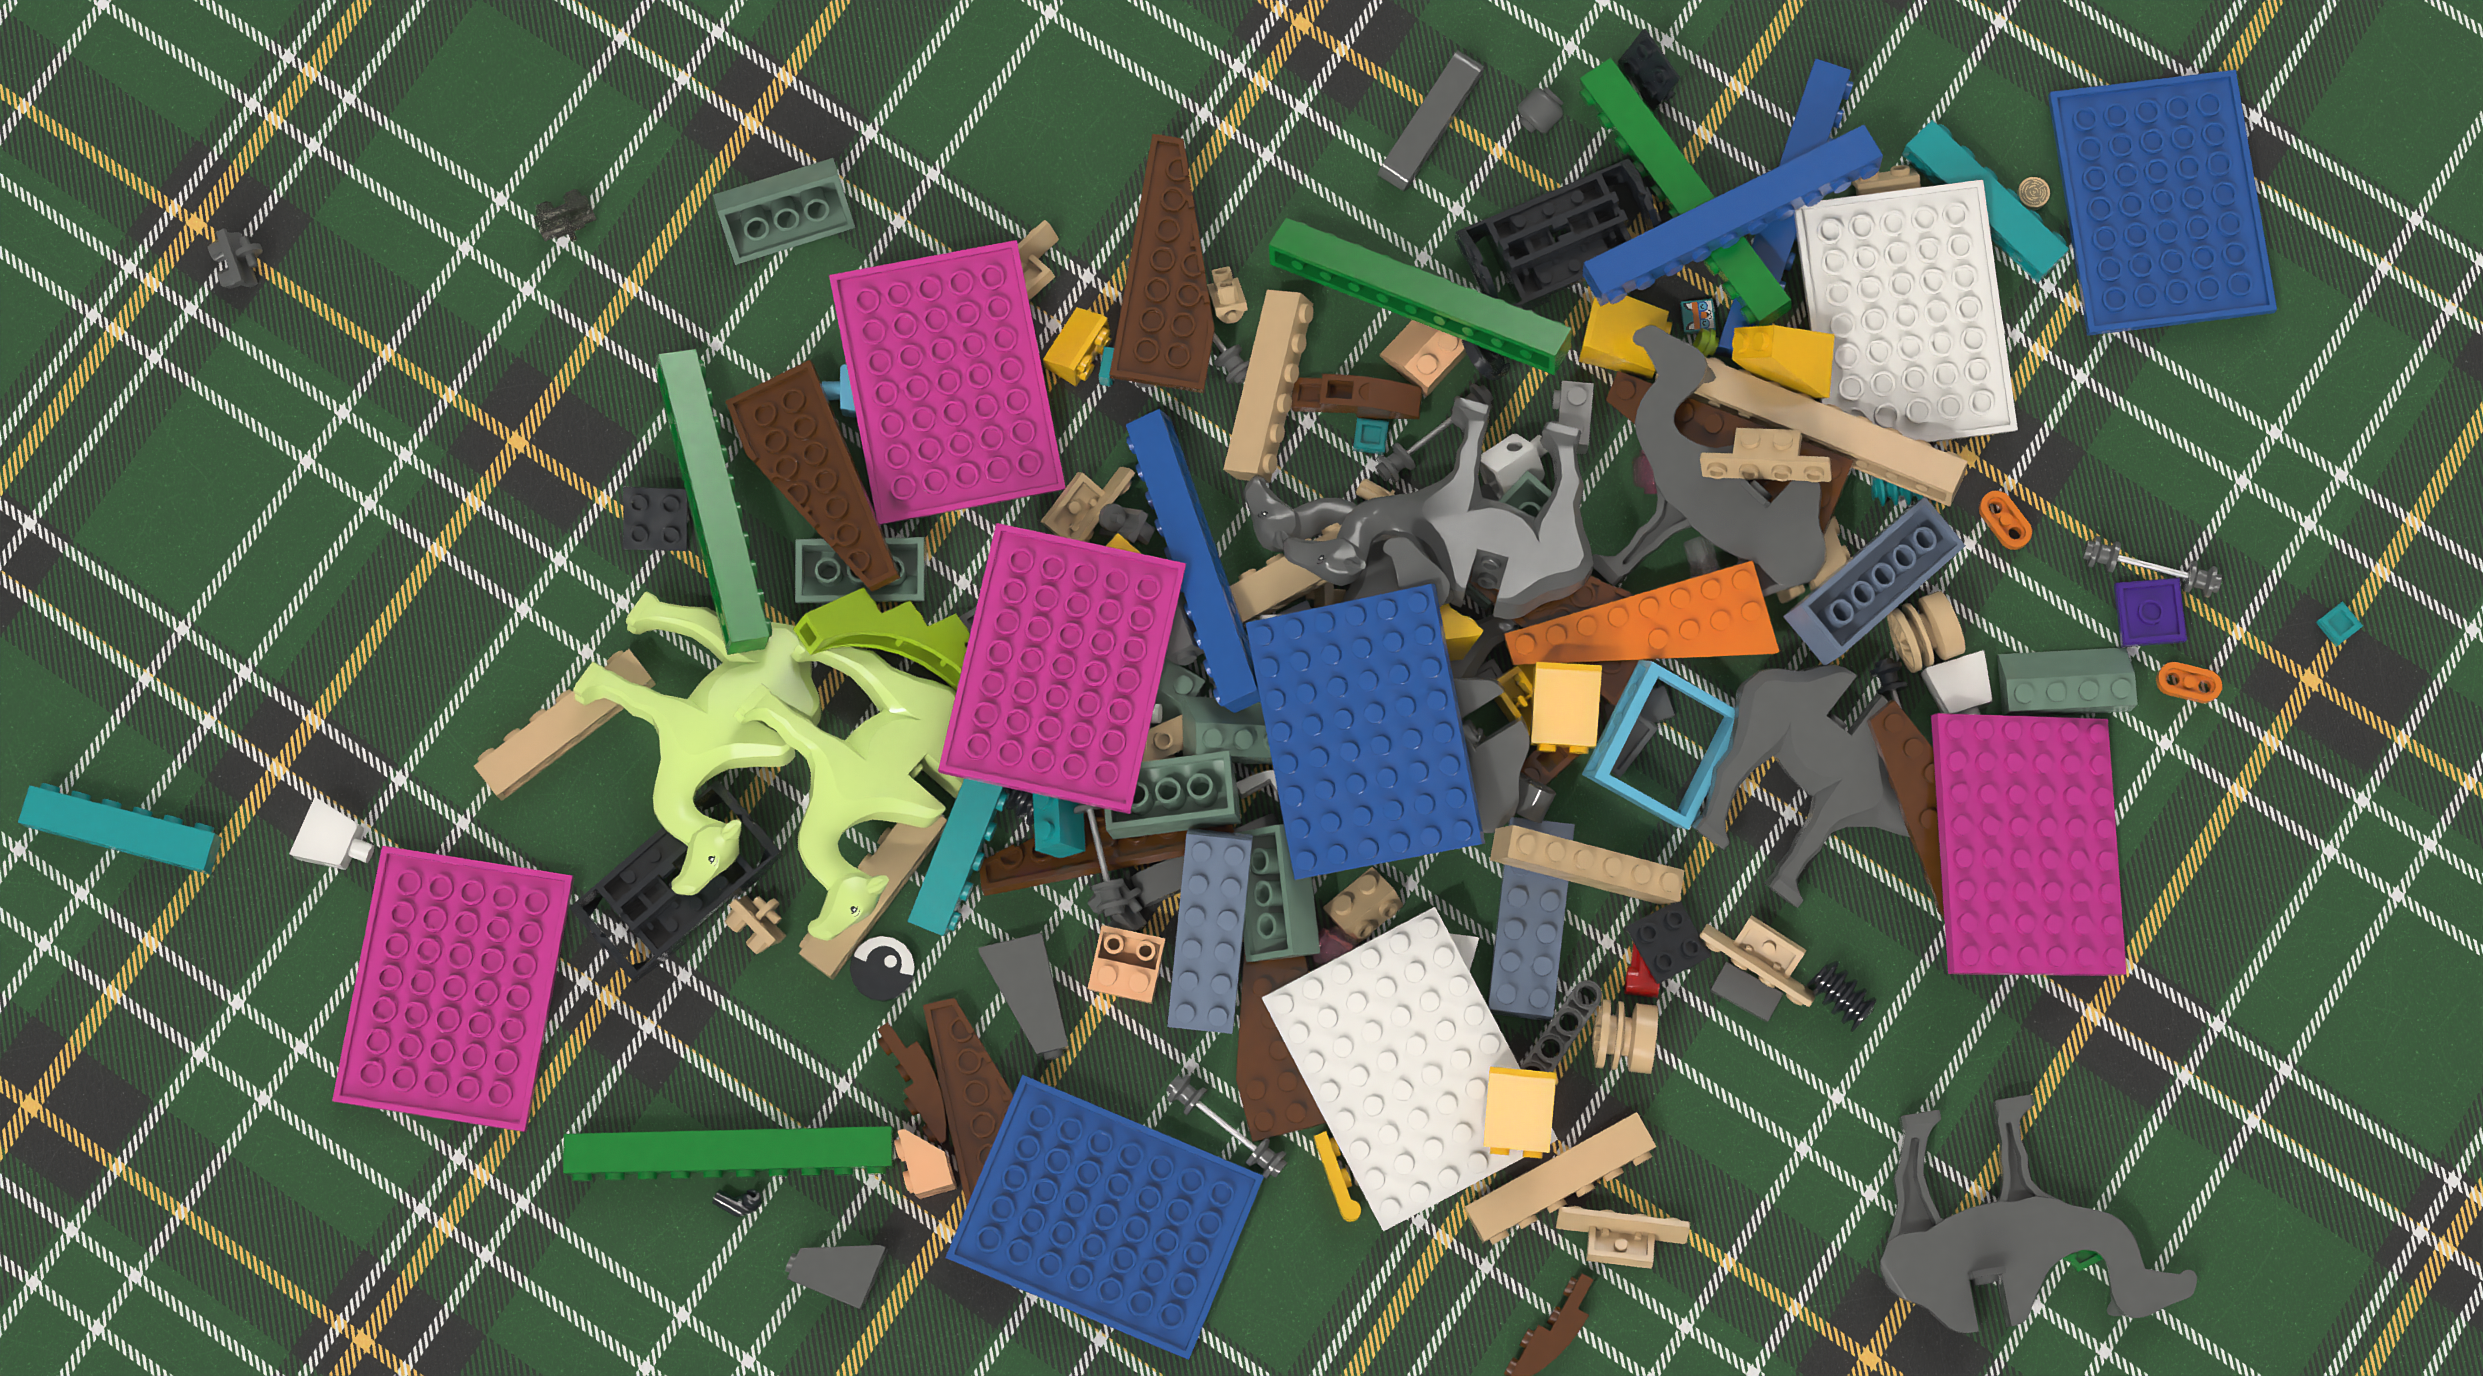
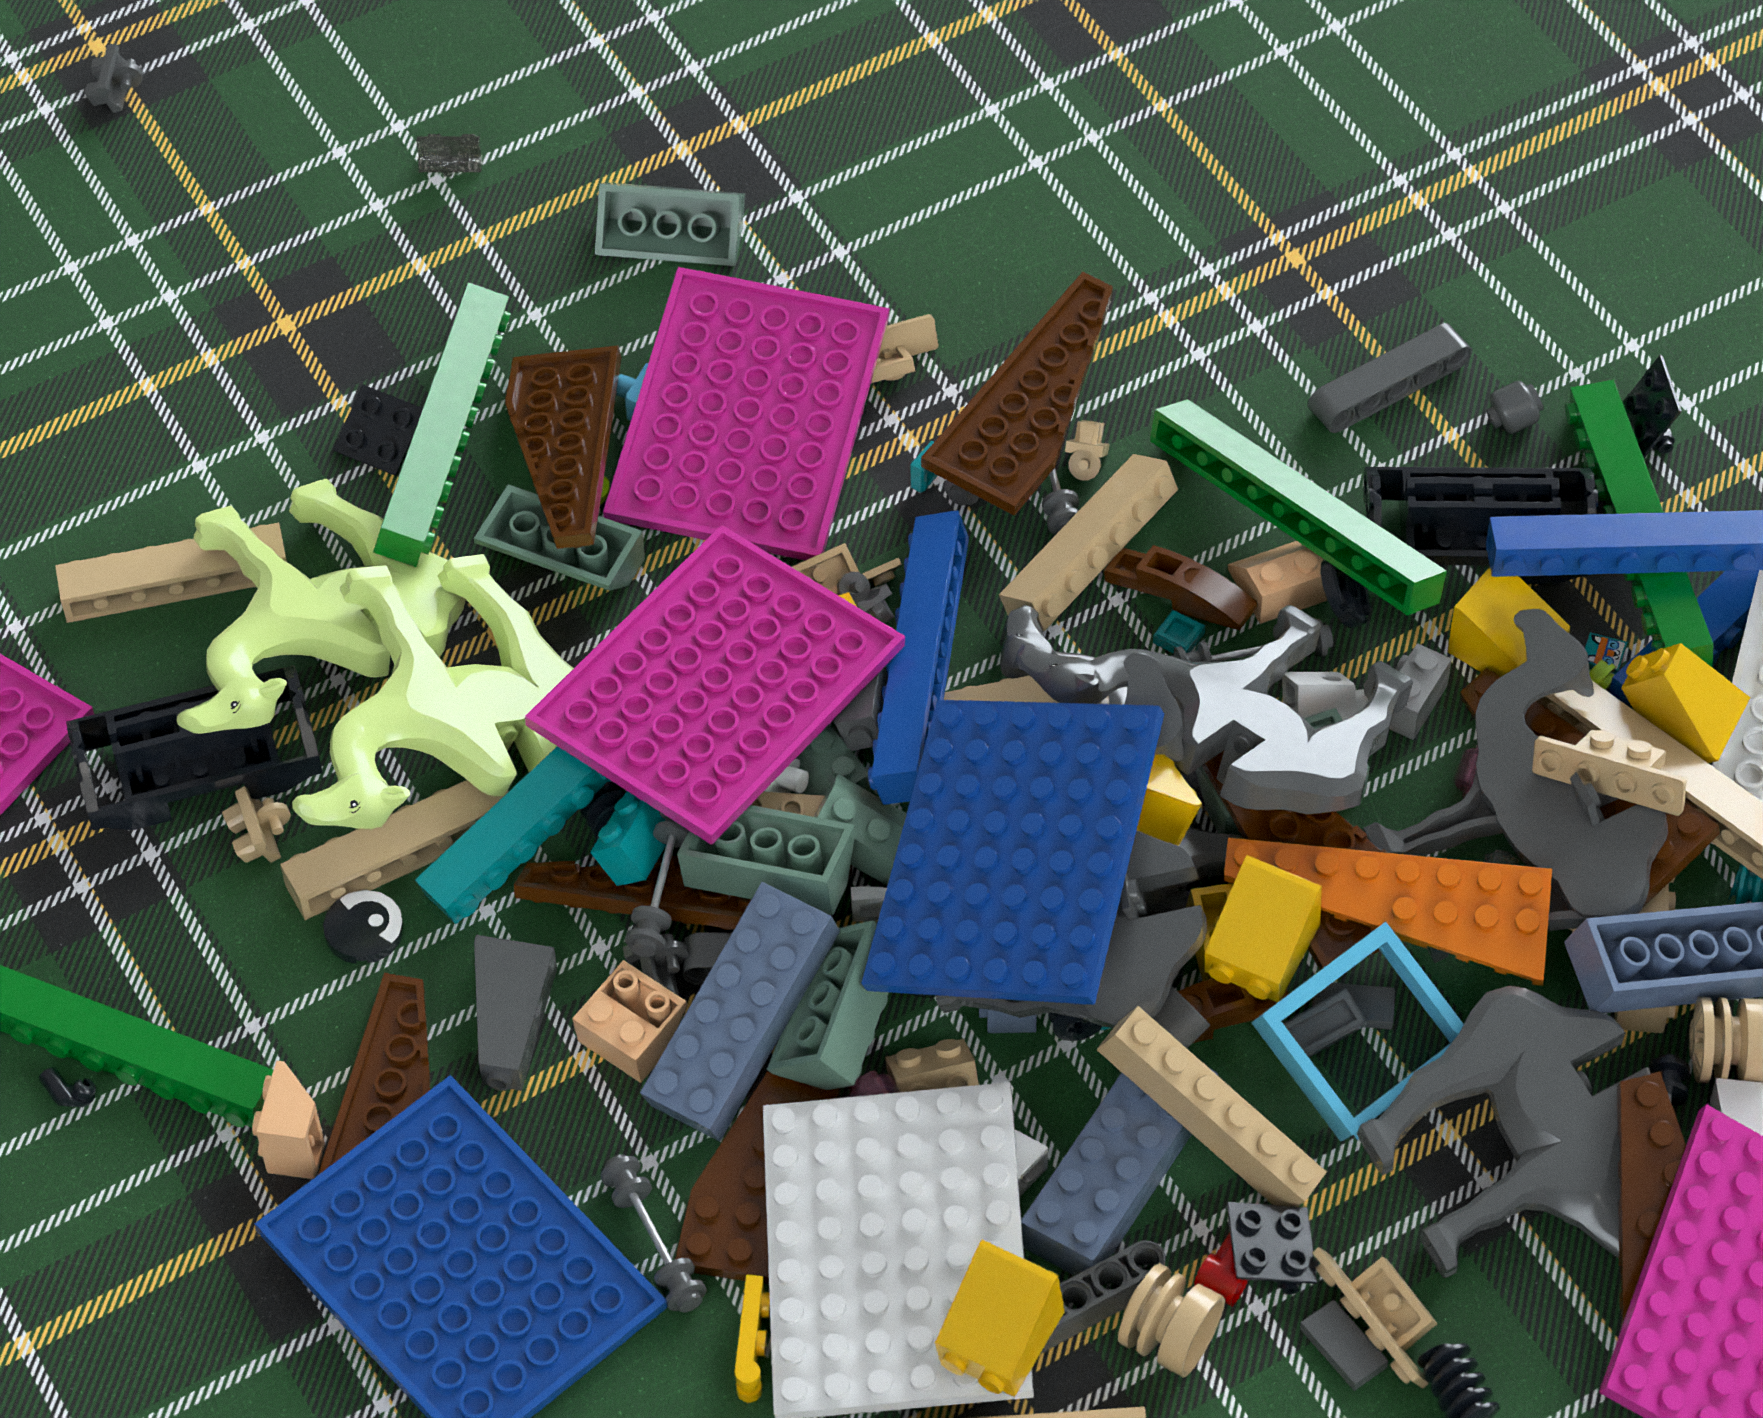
camera: 25 degrees right, 25 degrees down
(838, 1272) = (134, 1201): dark grey slope -> none
(901, 630) = (526, 570): lime arch -> none
(925, 1093) = (335, 1050): reddish brown slope -> none
(1078, 346) = (902, 435): yellow slope -> none

